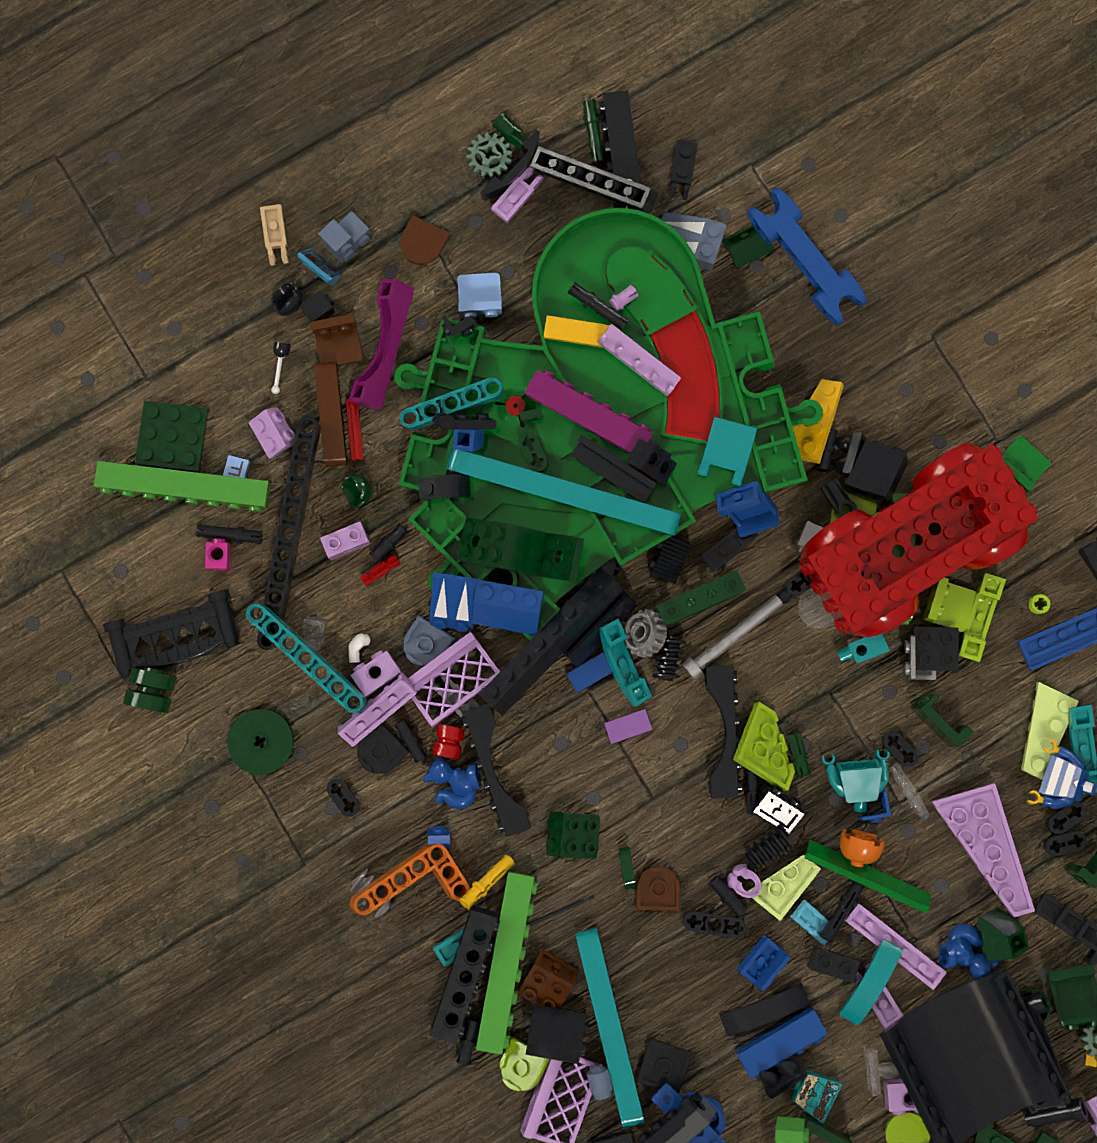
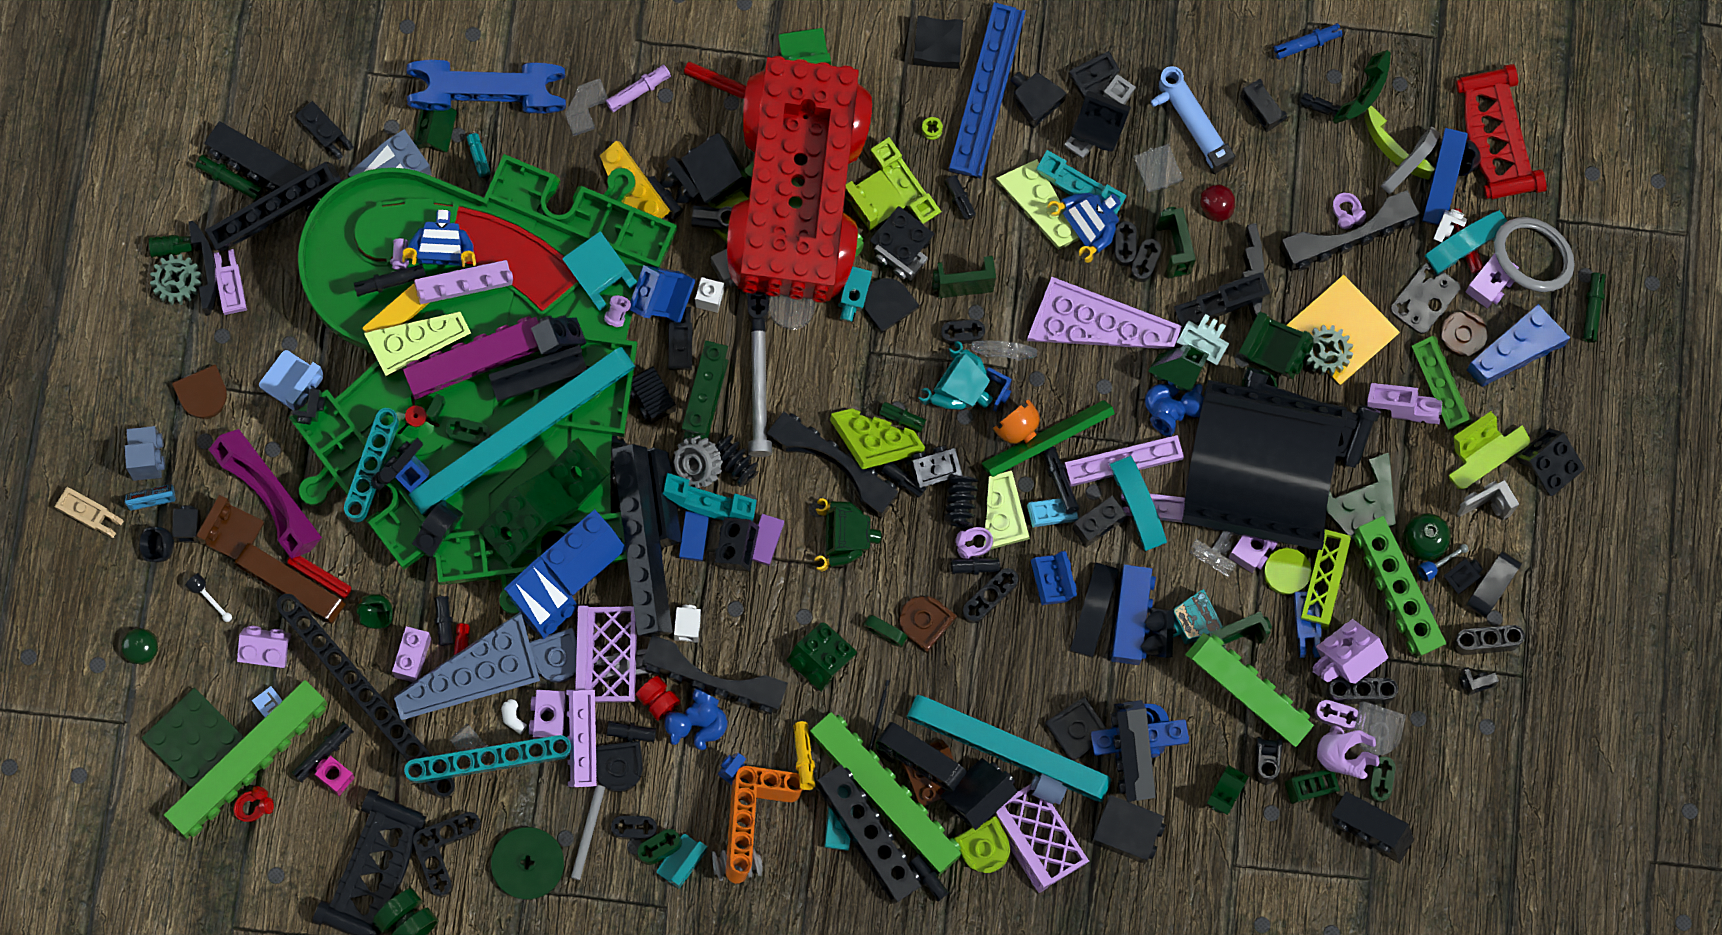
camera: 60 degrees left, 10 degrees down
(161, 525) = (265, 806): none -> red piece
(208, 346) = (140, 646): none -> dark green hair
(219, 668) = (432, 849): none -> black beam
(315, 767) = (588, 832): none -> light grey bar
(345, 822) = (657, 842): none -> dark green beam
(345, 850) = (680, 864): none -> teal panel
(373, 599) = (484, 668): none -> sand blue wing
(520, 719) = (687, 624): none -> white brick
(548, 972) = (902, 745): none -> black beam
(563, 358) = (411, 341): none -> yellowish green wing
(608, 714) = (742, 544): none -> black brick
(654, 320) = (440, 243): none -> torso
(678, 783) = (846, 533): none -> dark green torso
(707, 488) = (617, 311): none -> lavender bush
(752, 292) = (478, 155): none -> teal axle
(779, 542) = (709, 295): none -> white brick
(859, 334) = (585, 97): none -> clear tile
(878, 677) = (888, 303): none -> black tile
(902, 368) = (645, 84): none -> lavender pin
(947, 417) = (715, 79): none -> red axle
(1002, 666) = (960, 197): none -> black axle
(1039, 936) = (1205, 338): none -> light aqua hinge

